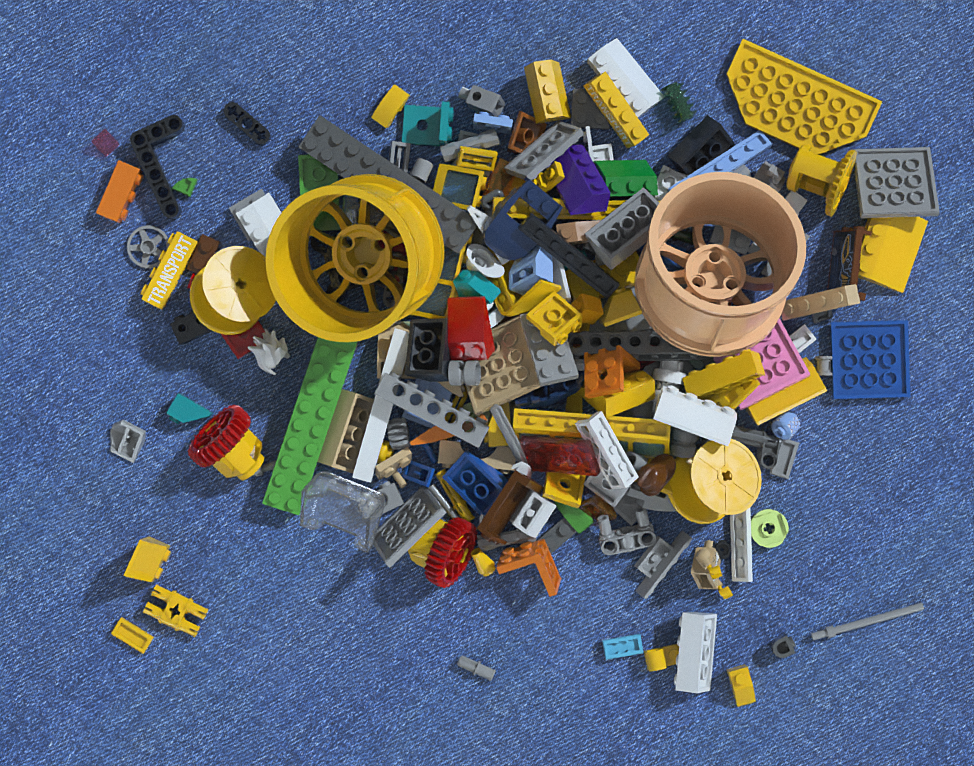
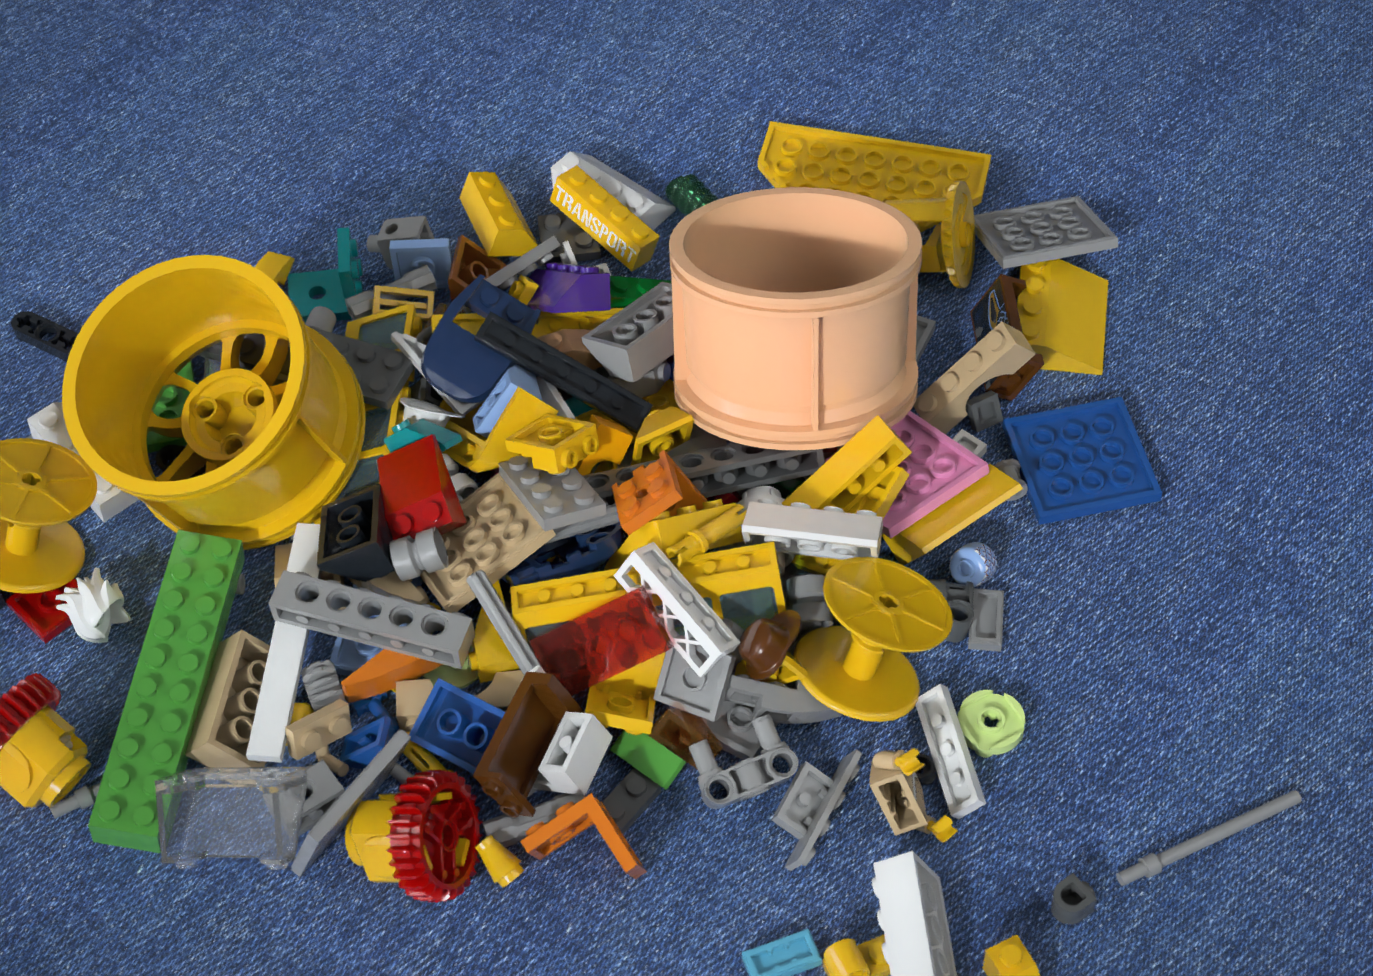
camera: 10 degrees left, 35 degrees down
(632, 406) = (697, 541): none -> yellow pin

